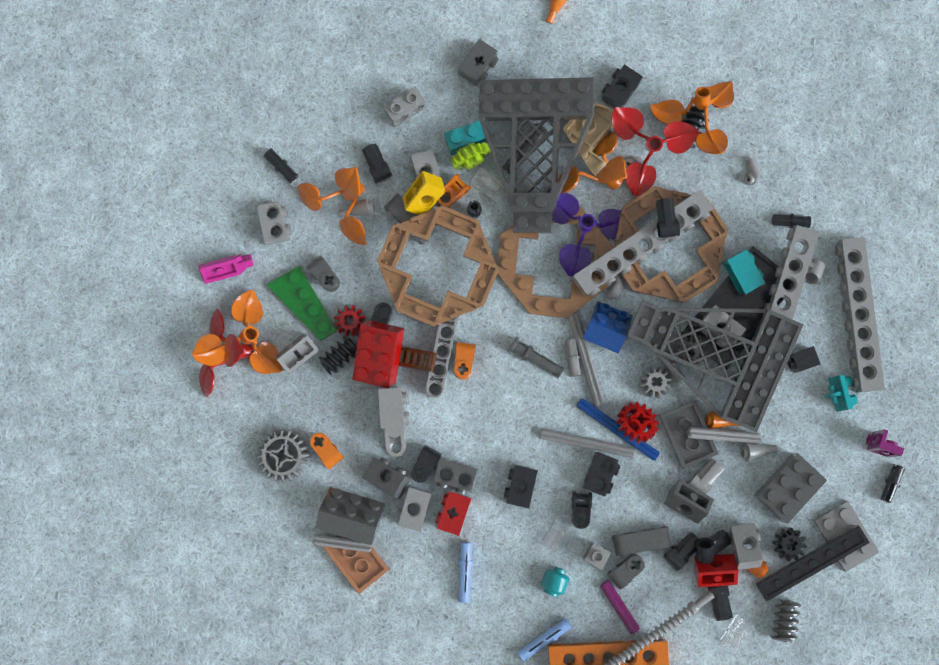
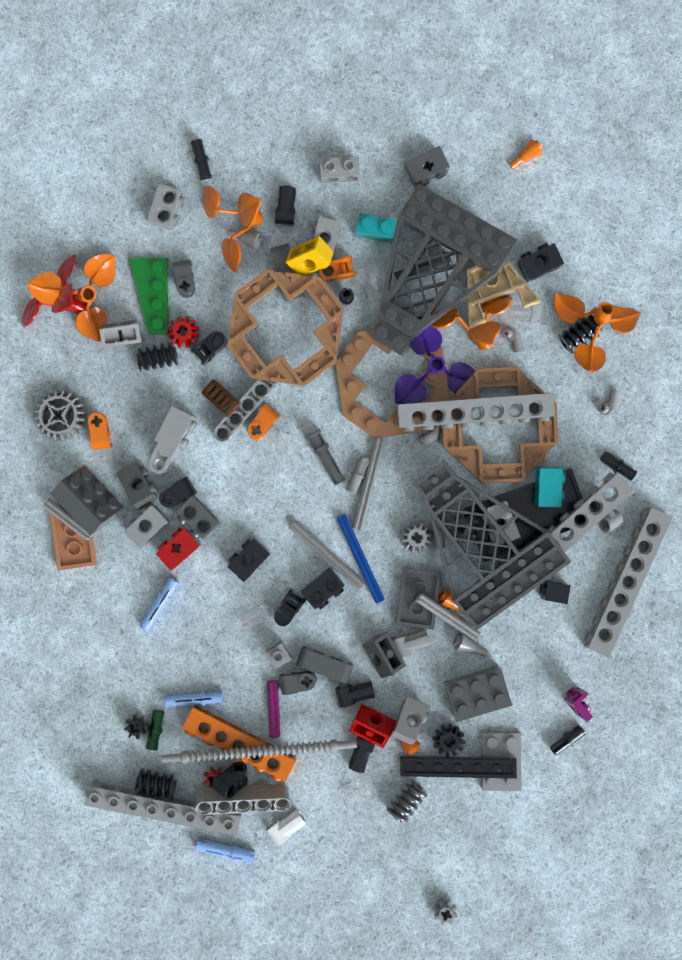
camera: 20 degrees right, 5 degrees up
(225, 267) = (101, 222): dark pink hinge -> none
(378, 354) = (190, 375): red brick -> none
(470, 156) = (370, 247): lime gear -> none
(555, 581) = (230, 656): teal head -> none
(608, 327) = (403, 466): blue slope -> none
(637, 422) = (380, 563): red gear -> none
(667, 223) = (506, 405): black piece -> none
(679, 139) = (561, 337): red plant -> none
(708, 547) = (378, 703): black piece -> none
(839, 393) = (569, 637): teal hips -> none

